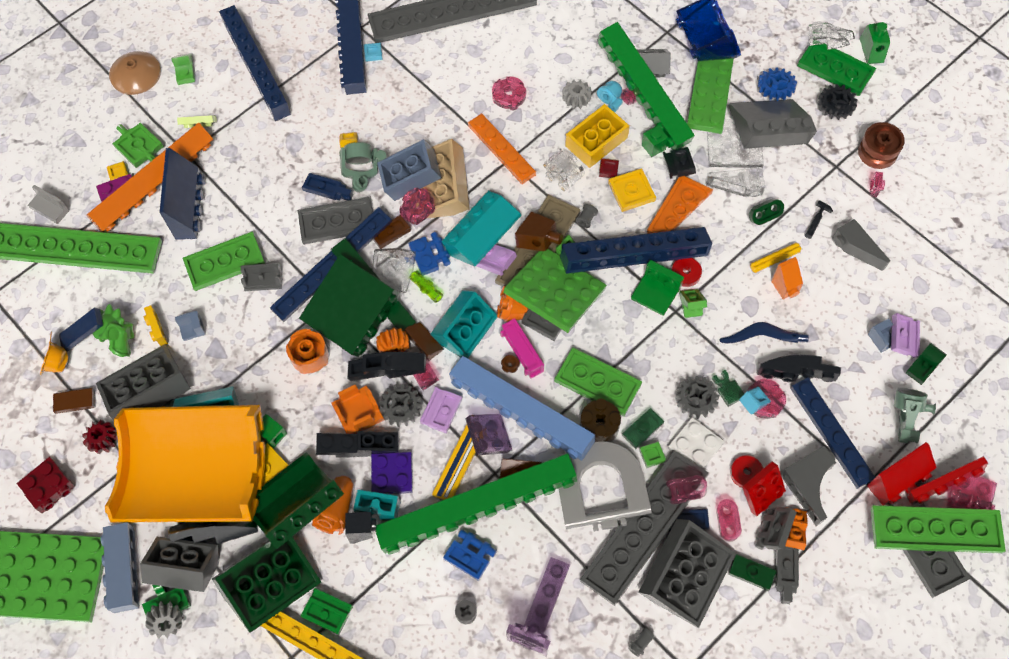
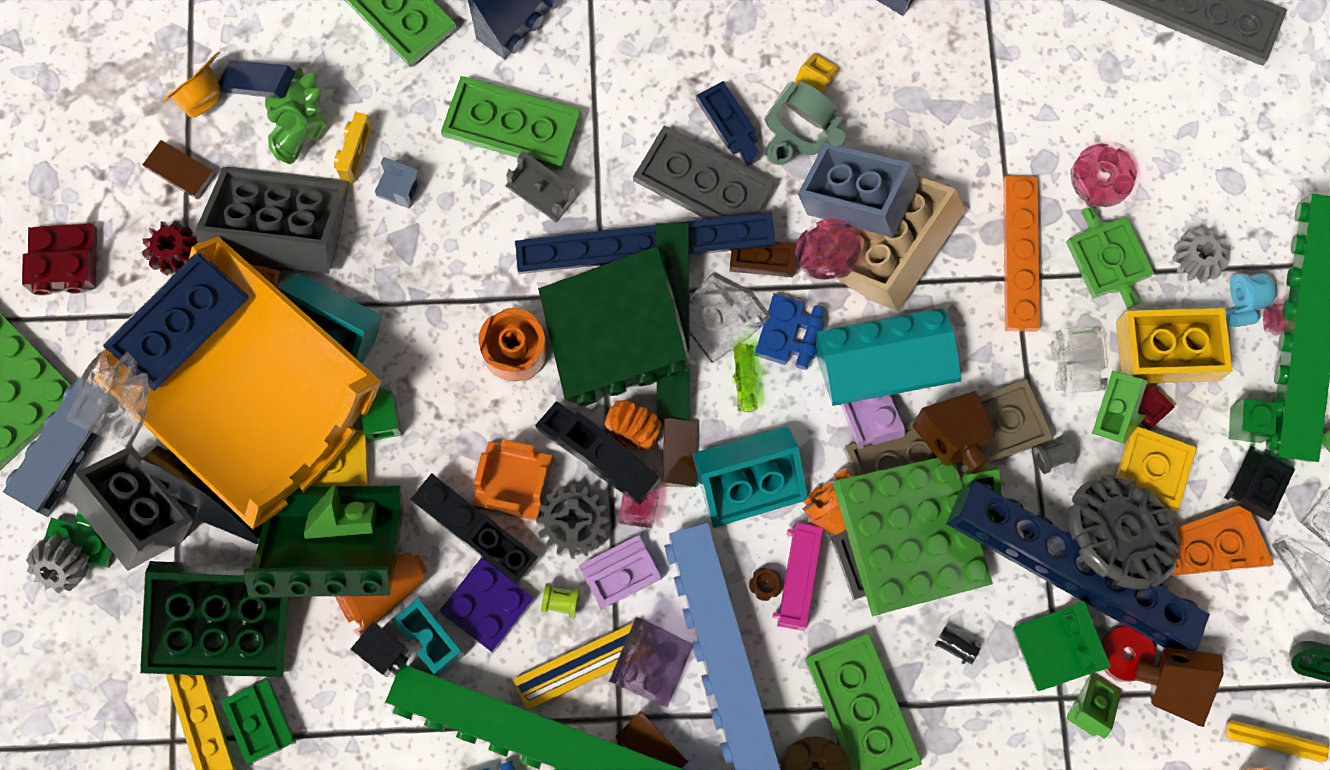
camera: 35 degrees right, 10 degrees up
(130, 520) = (111, 400): none -> clear plate
(133, 460) = (177, 319): none -> dark blue tile
(284, 491) = (332, 518): none -> bright green slope
(424, 443) = (560, 600): none -> lime bush
(540, 122) = (1109, 257): none -> bright green plate
(597, 176) = (1119, 407): none -> bright green slope
(614, 323) = (960, 647): none -> black pin
(646, 220) = (1146, 521): none -> dark grey plate
(718, 261) = (1183, 682): none -> reddish brown torso

